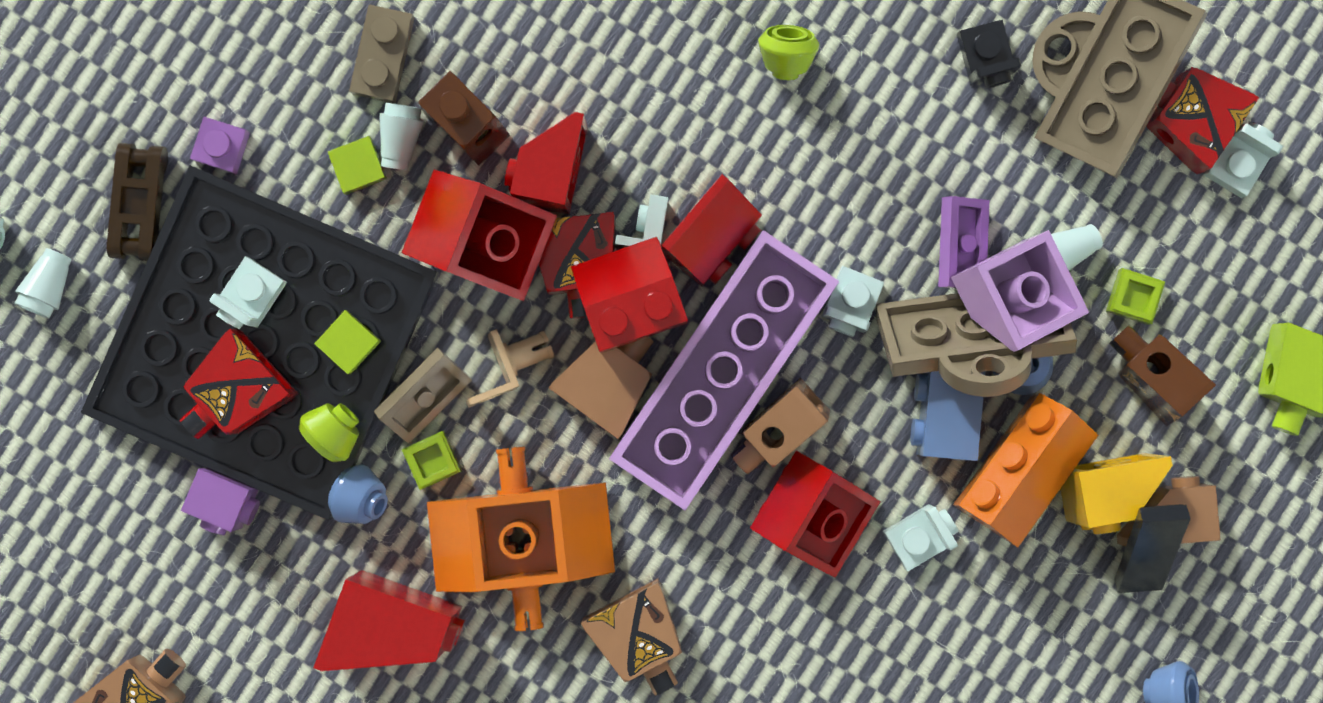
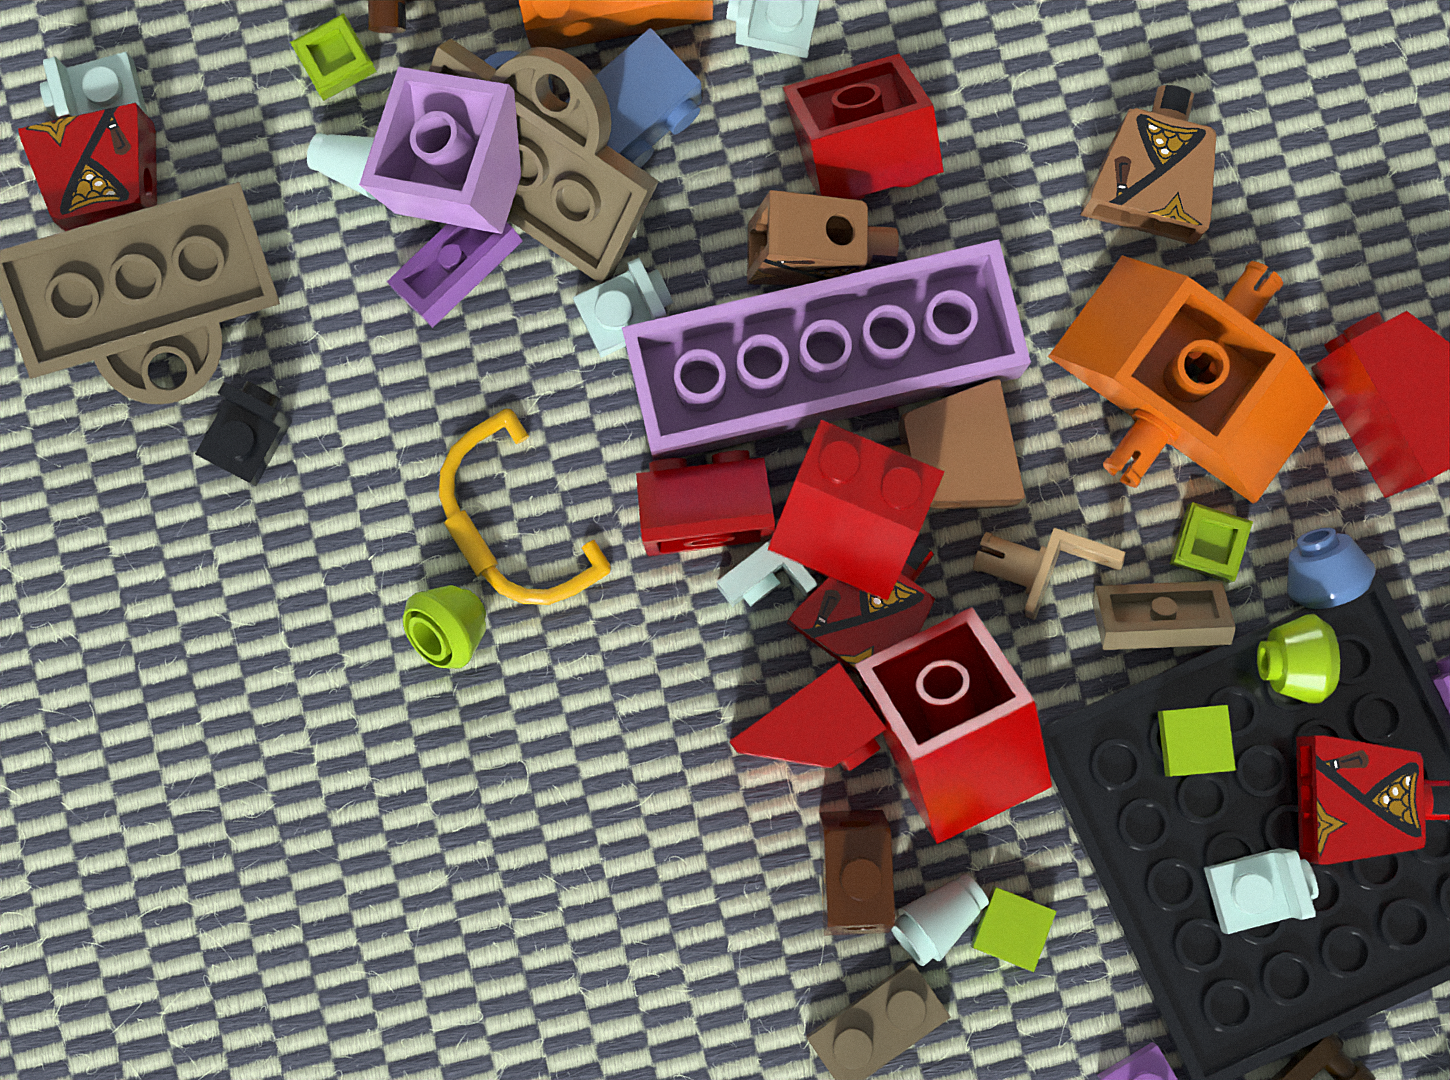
camera: 135 degrees left, 5 degrees down
(816, 107) = (472, 543): none -> yellow piece

